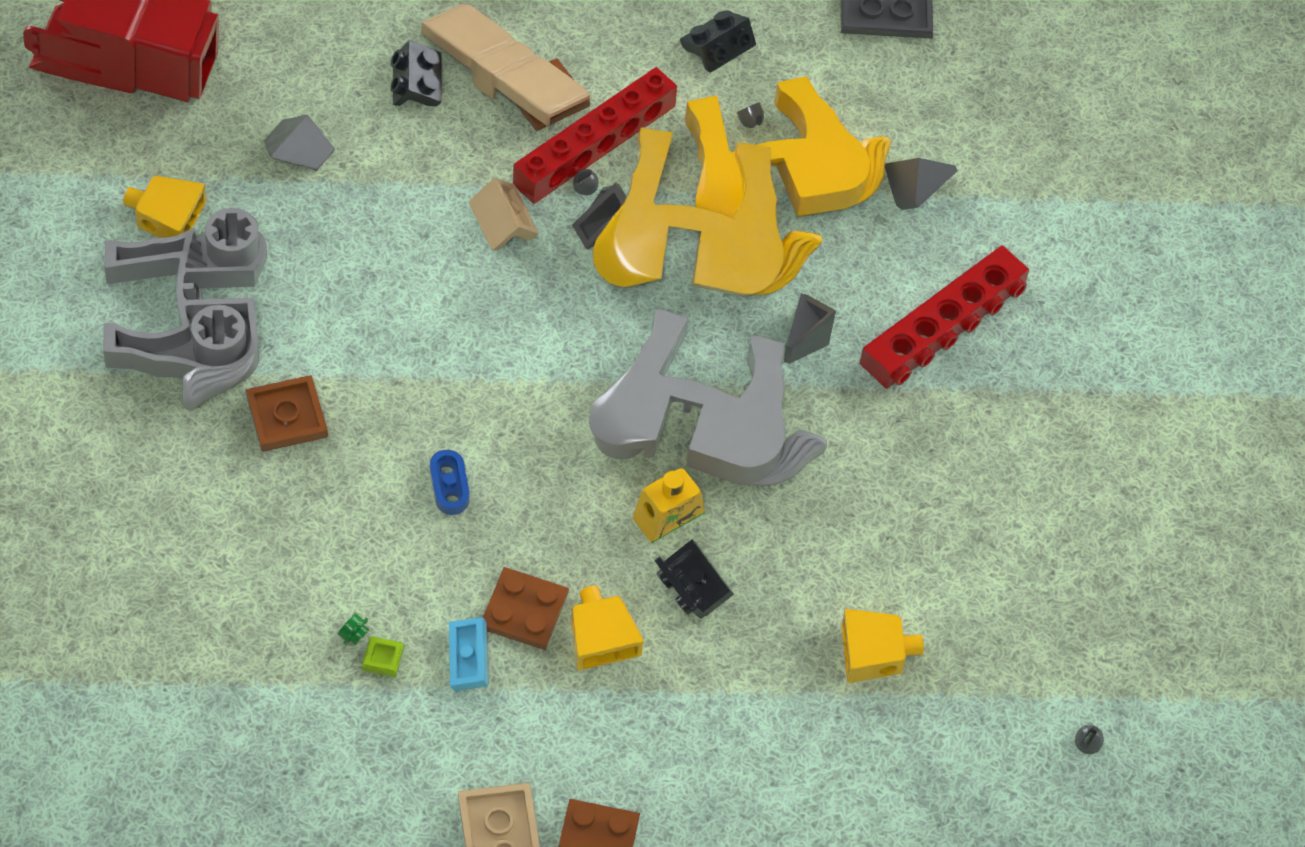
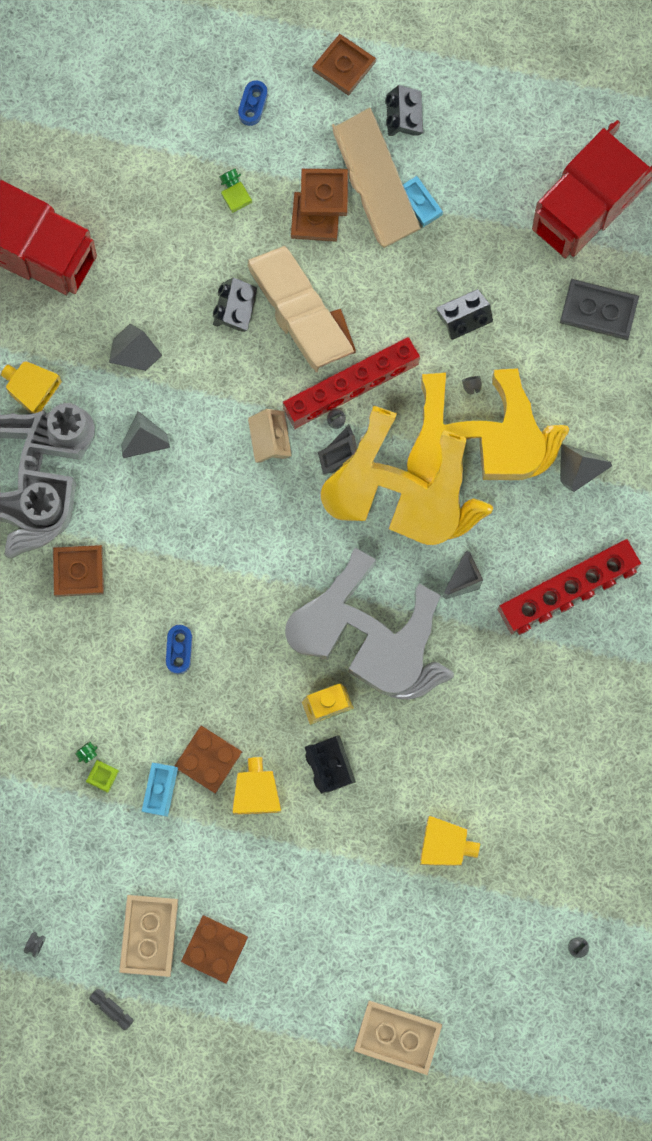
camera: 20 degrees right, 20 degrees up
(334, 241) = (143, 437): none -> dark grey slope

